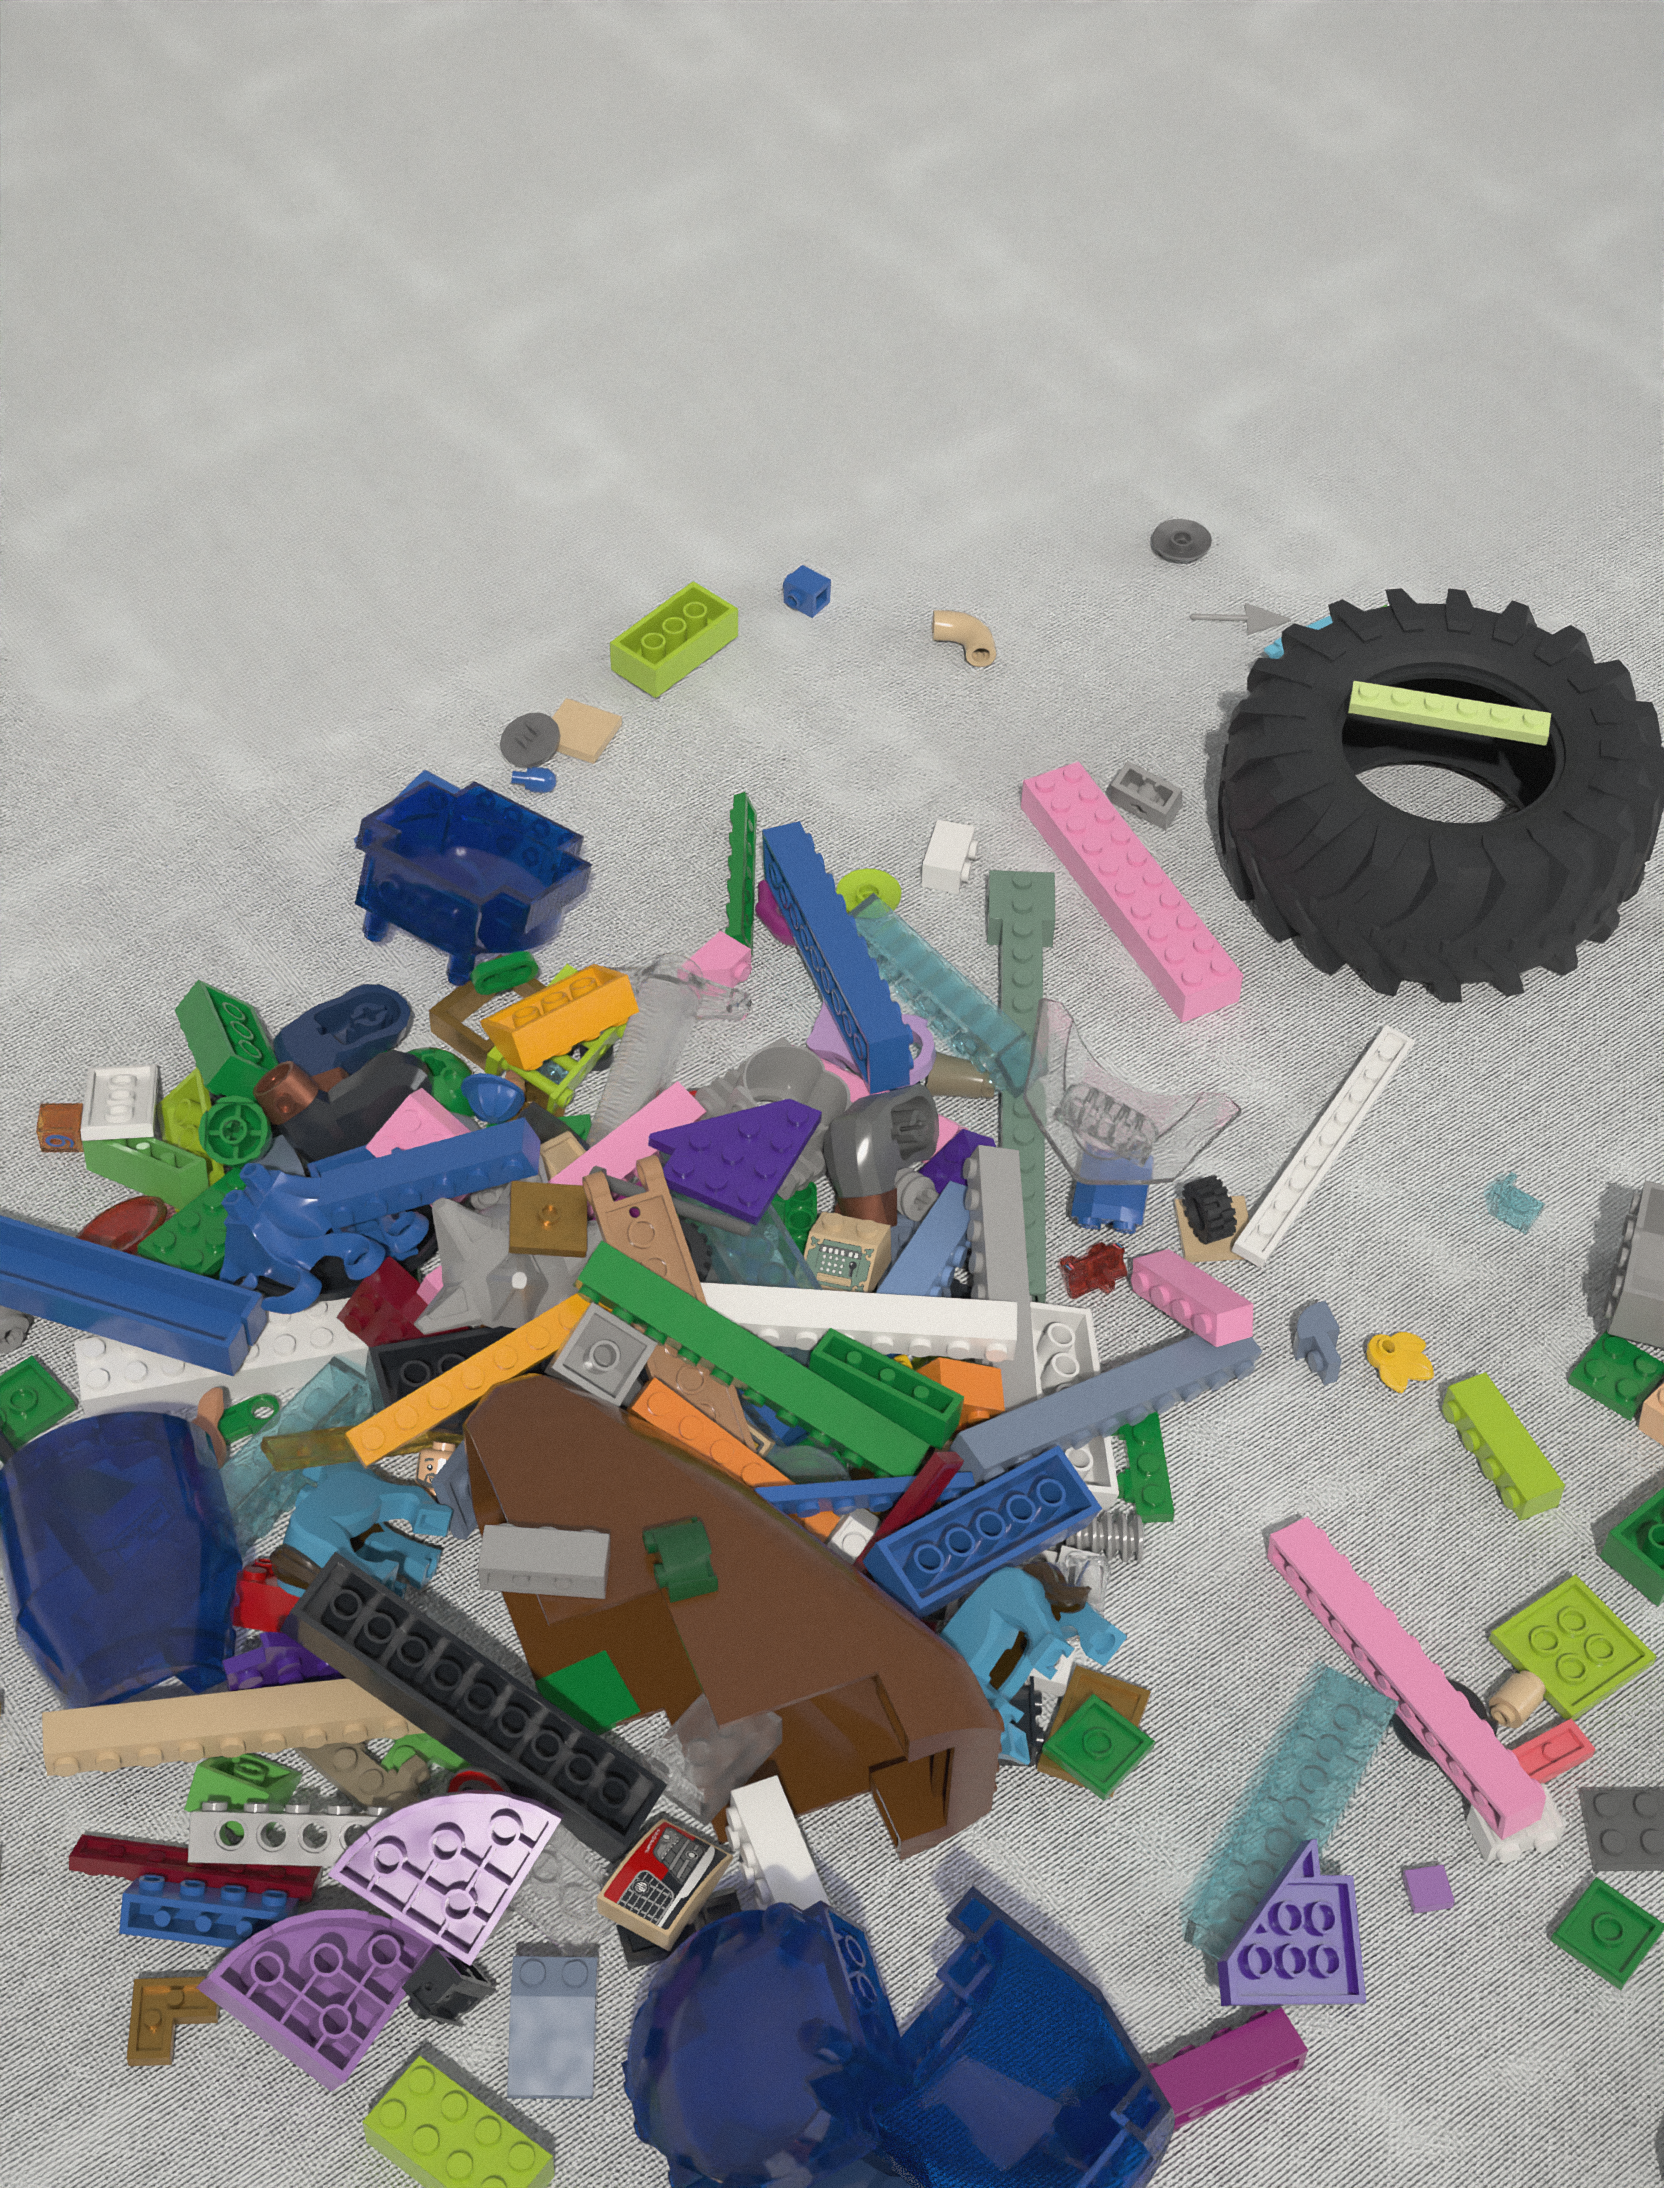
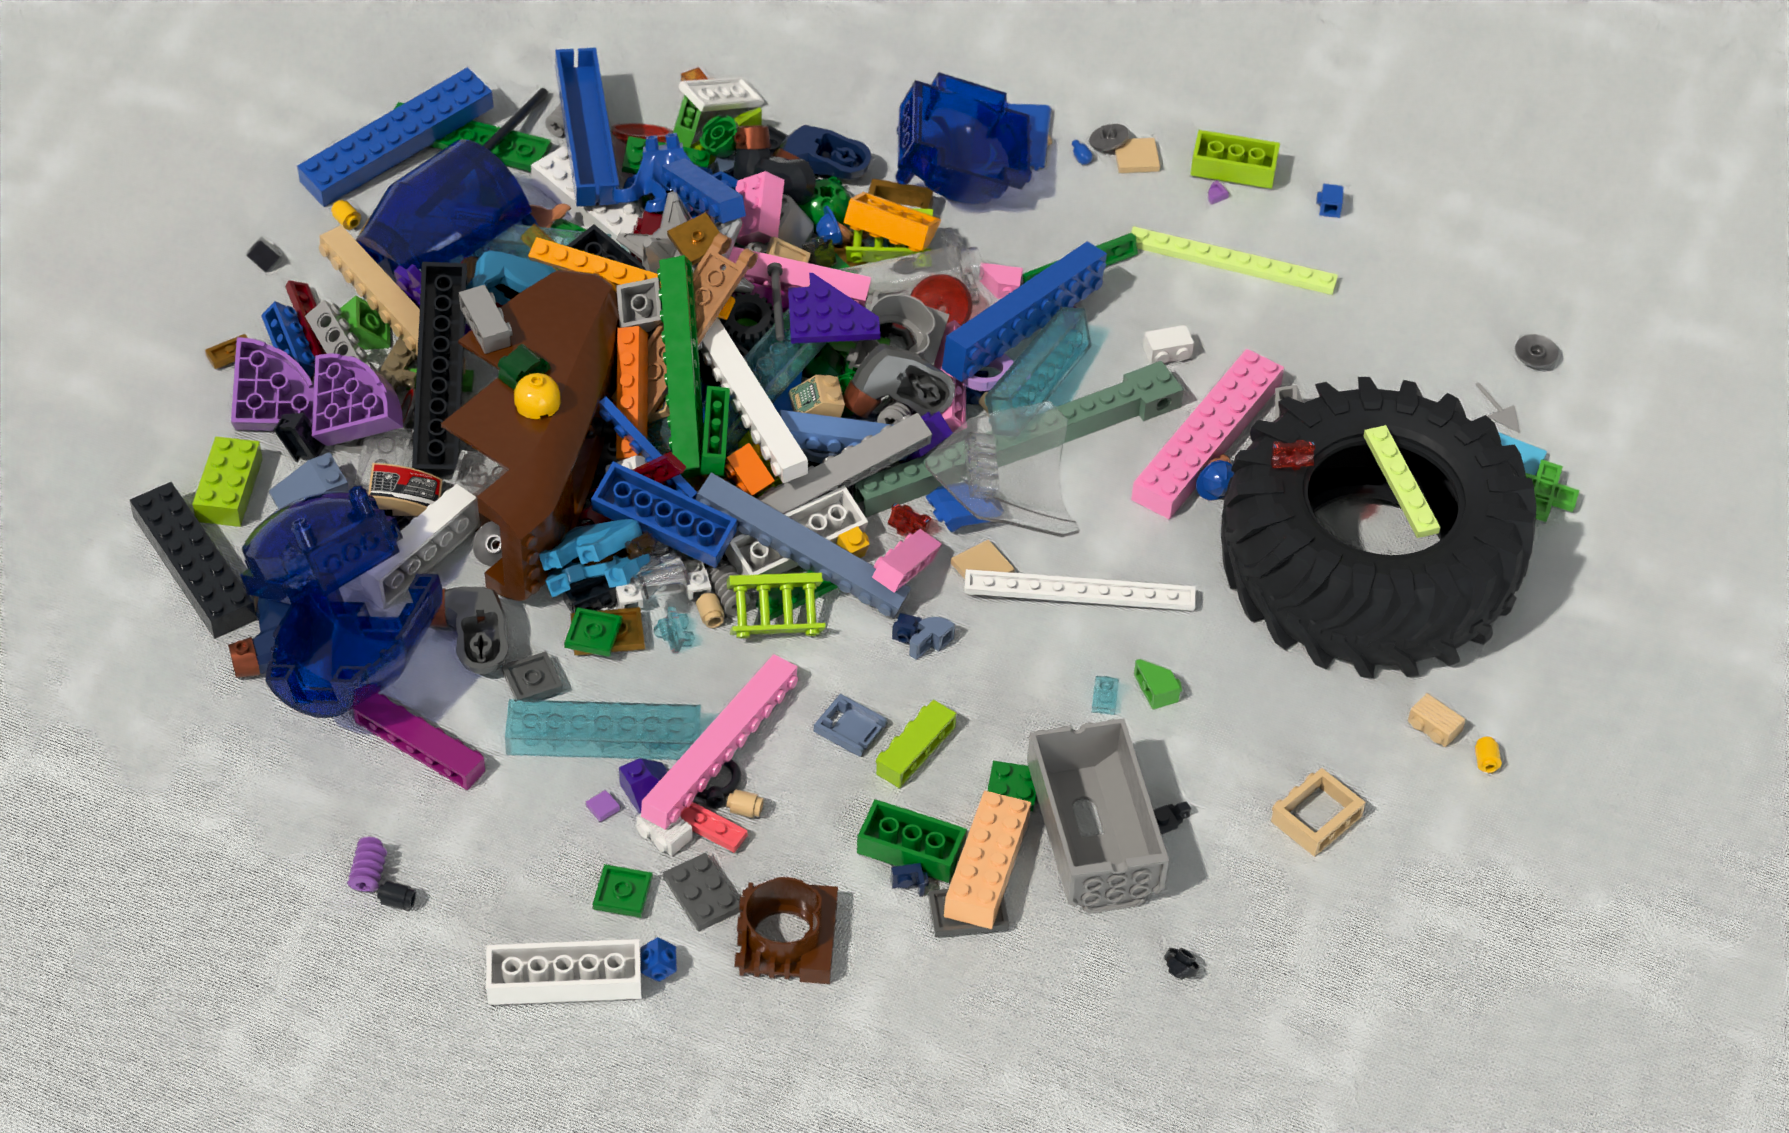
camera: 60 degrees right, 0 degrees up
(225, 1040) = (784, 109): green brick -> none
(504, 972) = (914, 192): green plate -> none
(704, 688) = (1217, 193): none -> medium lavender tile
(725, 1026) = (945, 291): none -> clear red dish
(756, 1564) = (537, 396): none -> yellow cylinder
(835, 729) = (1235, 261): none -> yellowish green plate
(855, 1810) = (485, 543): none -> flat silver dish
(863, 882) = (1110, 322): lime dish -> none
(967, 631) = (1362, 283): tan cylinder -> none
(1049, 1900) = (478, 624): none -> dark grey piece
(1113, 1346) = (854, 541): none -> yellow brick
(1130, 1579) = (710, 610): none -> tan brick
(1135, 1874) = (532, 677): none -> dark grey plate
(1145, 1642) = (672, 630): none -> clear light blue hips
(1149, 1483) = (785, 582): none -> lime fence
(1209, 1209) = (977, 547): black tyre -> none
(1221, 909) = (1214, 478): none -> blue piece
(1283, 1364) = (905, 627): none -> dark blue bracket
(1297, 1942) = (520, 746): wing -> none
(1369, 782) = (1292, 454): none -> clear red hips
(1399, 1359) = (948, 681): yellow plate -> none
(1423, 1812) = (640, 778): none -> dark purple slope
(1428, 1506) = (854, 729): none -> sand blue container
(1526, 1141) = (1157, 684): none -> bright green slope
(1573, 1647) = (798, 819): lime plate -> none

